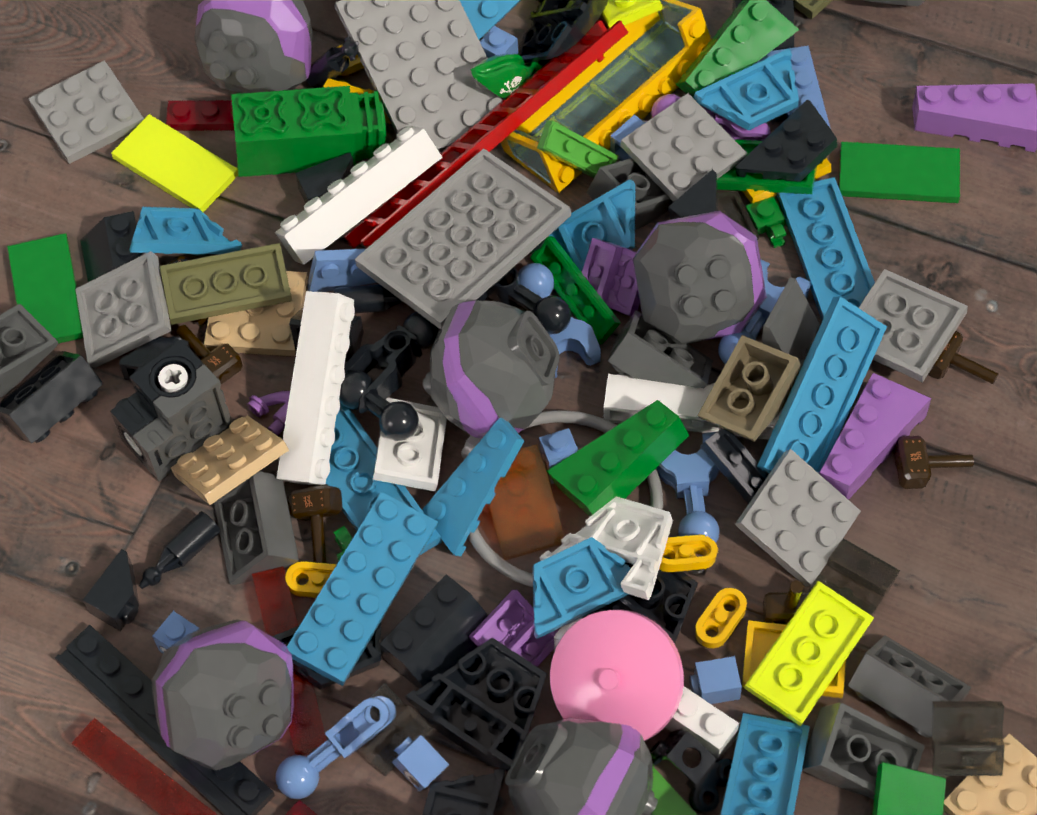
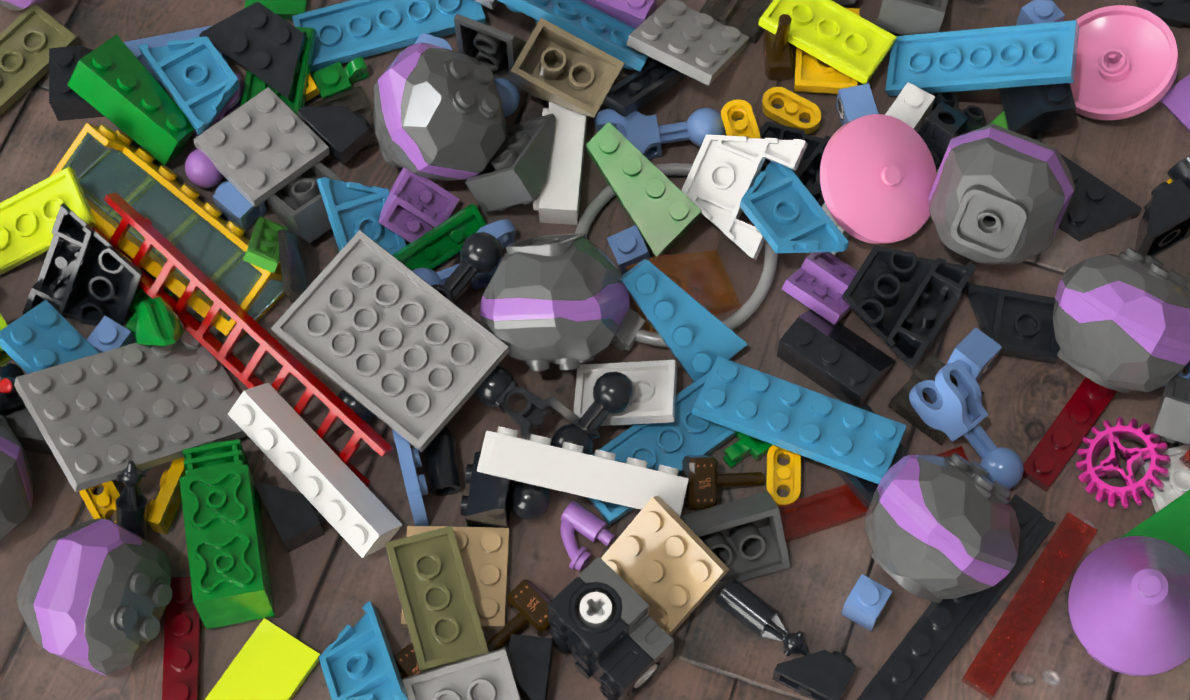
camera: 95 degrees left, 5 degrees up
(558, 175) = (298, 263): none -> clear smoke slope

